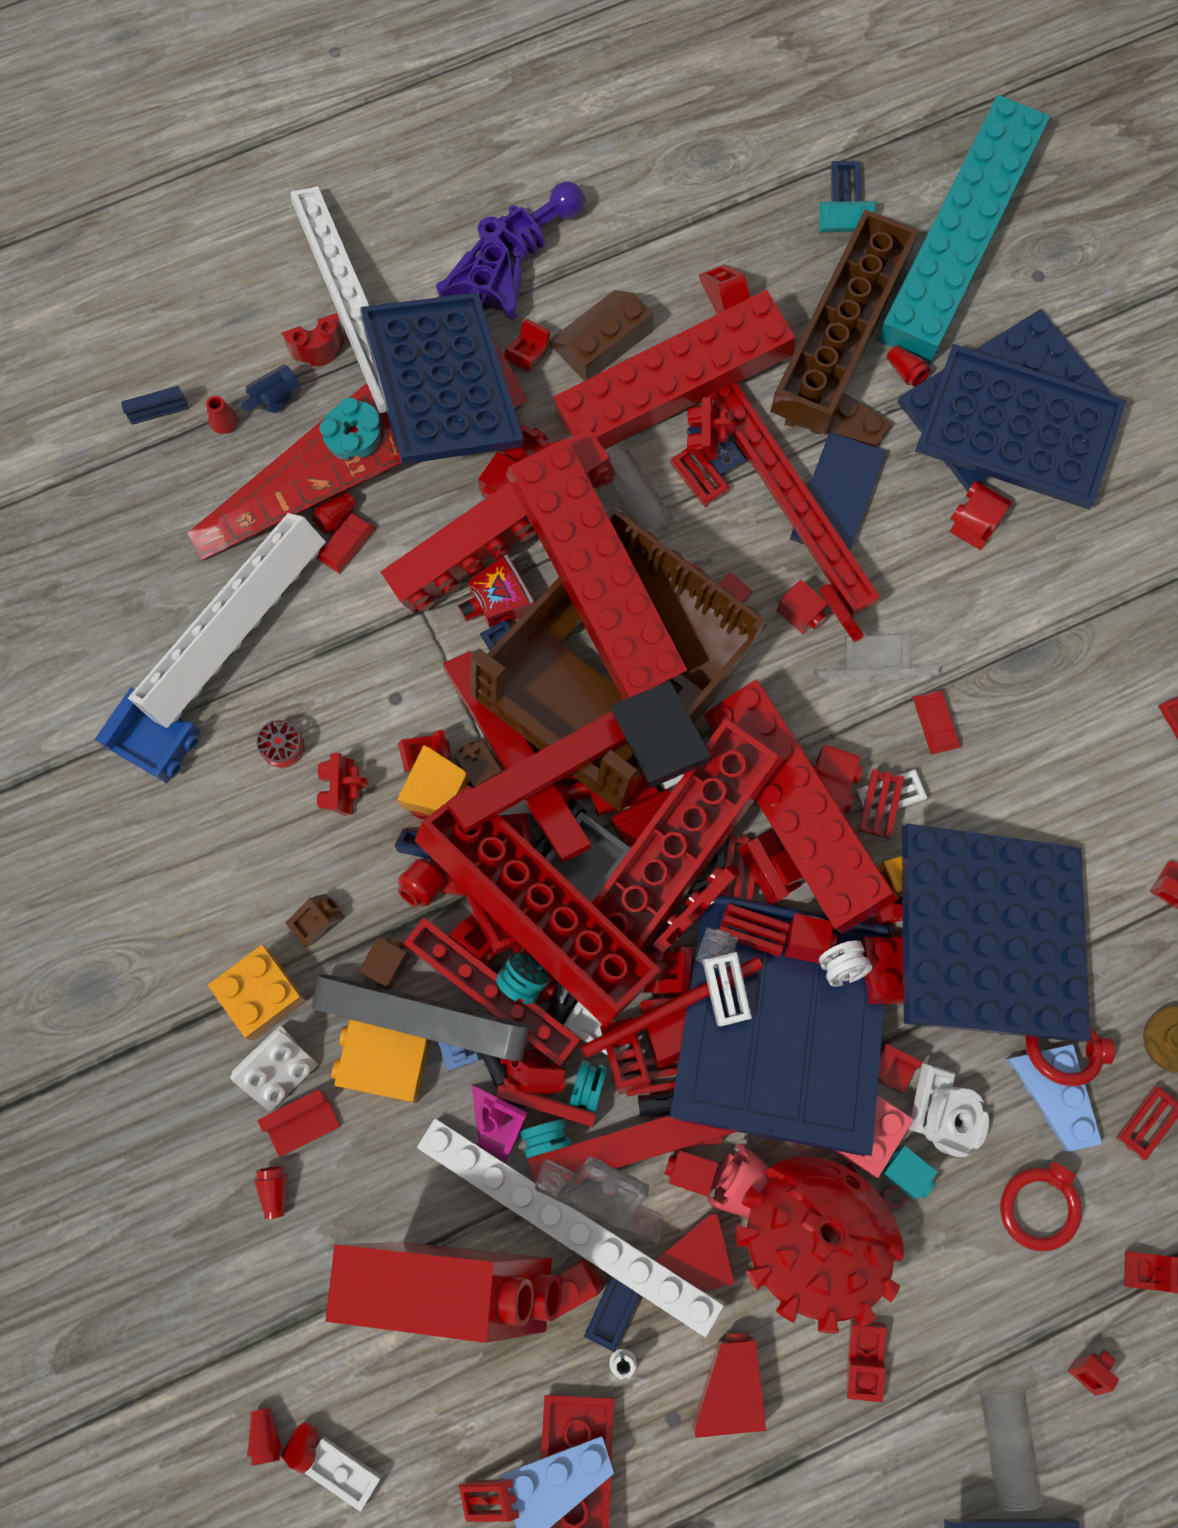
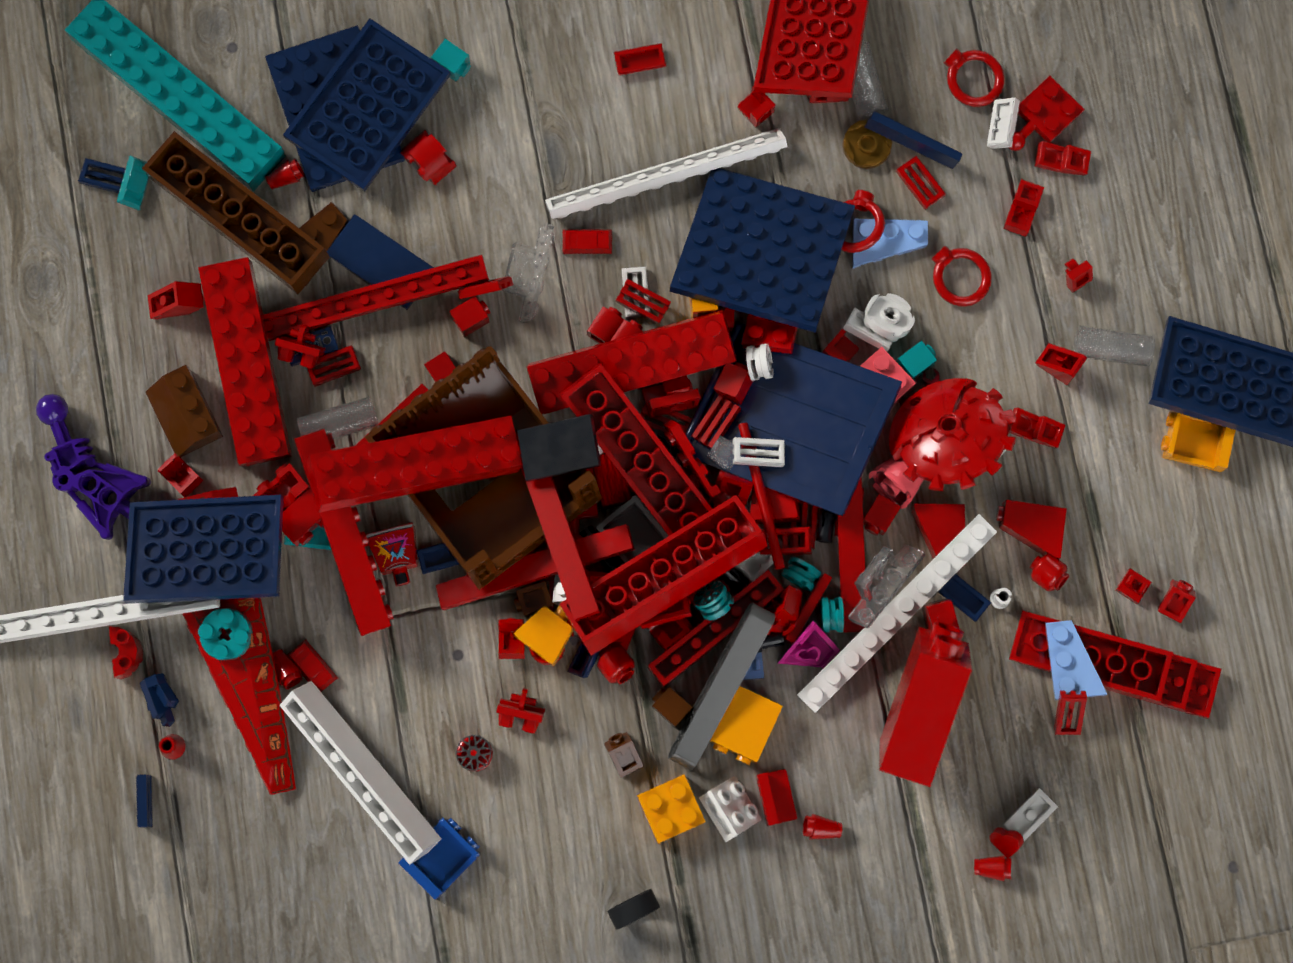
camera: 80 degrees left, 5 degrees up
(124, 976) = (633, 909): none -> black tyre
(673, 1425) = (1049, 572): none -> red head
(965, 1376) = (1060, 362): none -> red slope
(1058, 800) = (665, 173): none -> white plate
(1108, 508) = (452, 59): none -> teal brick

